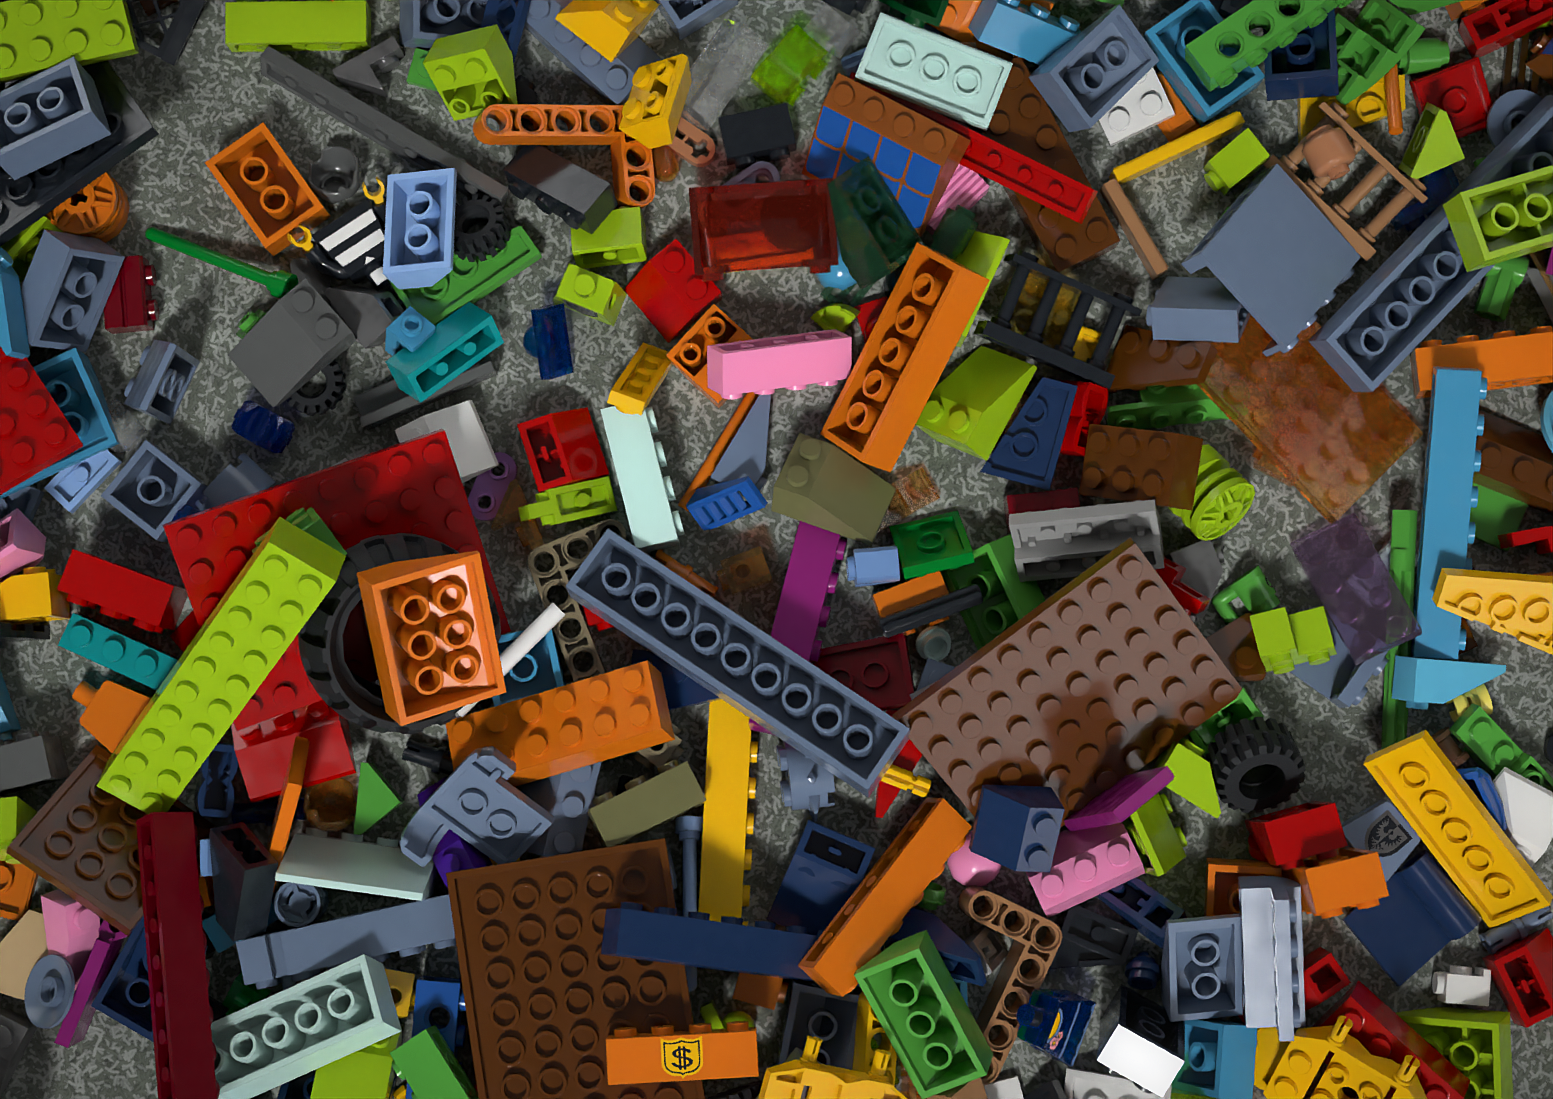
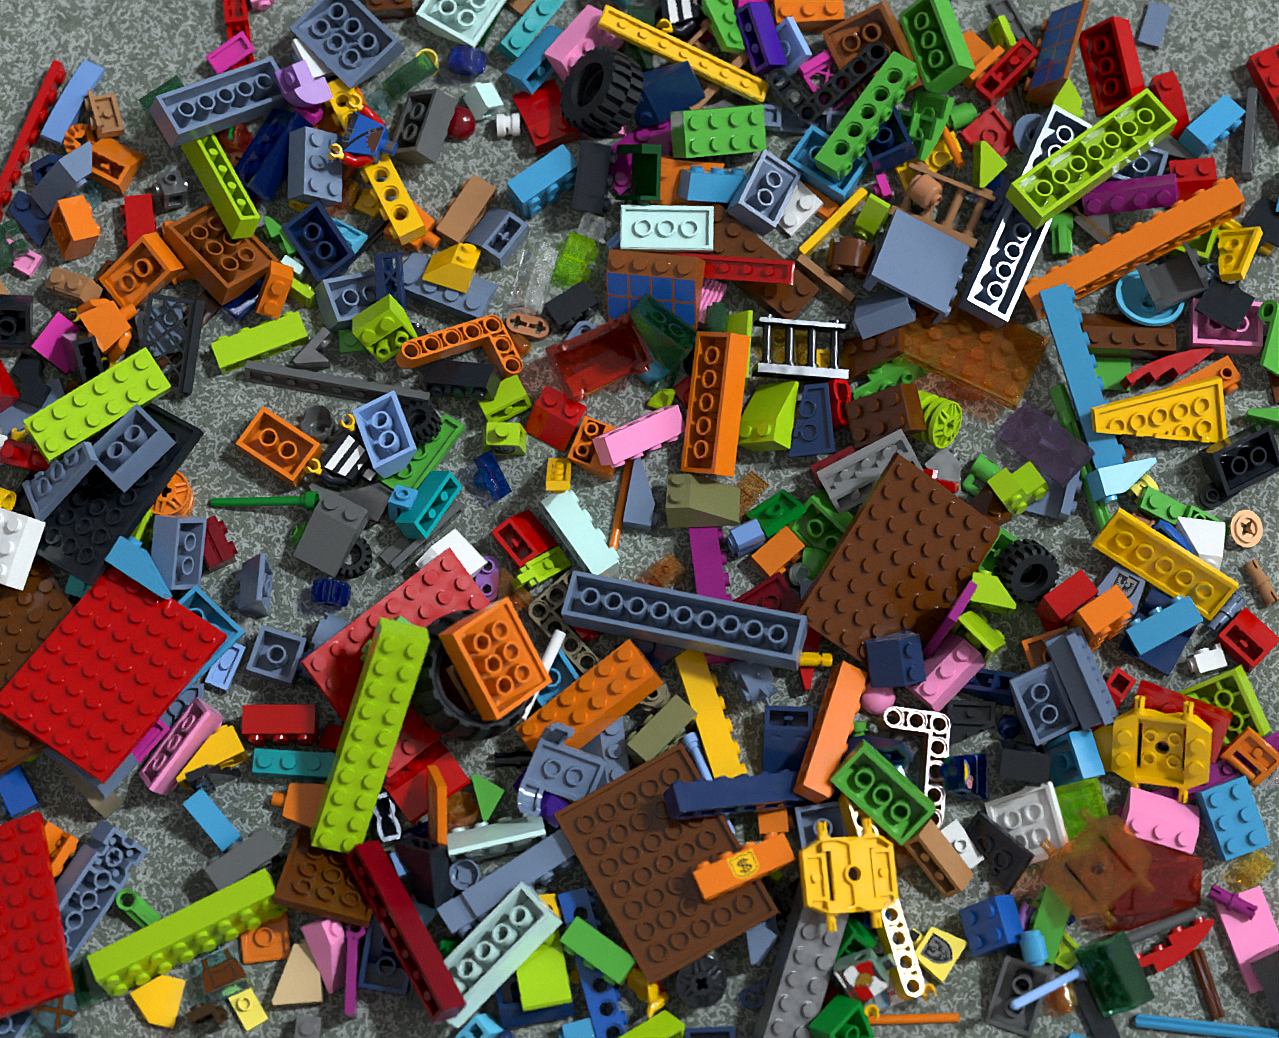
camera: 20 degrees left, 10 degrees down
(49, 991) = (328, 985): sand blue dish -> none
(657, 101) = (504, 306): yellow slope -> none
(712, 505) = (631, 545): blue slope -> none
(931, 610) = (791, 551): black axle -> none
(961, 637) = (814, 559): none -> bright green hair
(1182, 208) = (850, 257): none -> reddish brown brick
(1267, 123) = (881, 188): none -> dark pink plate
(1423, 917) = (1163, 624): none -> dark azure brick

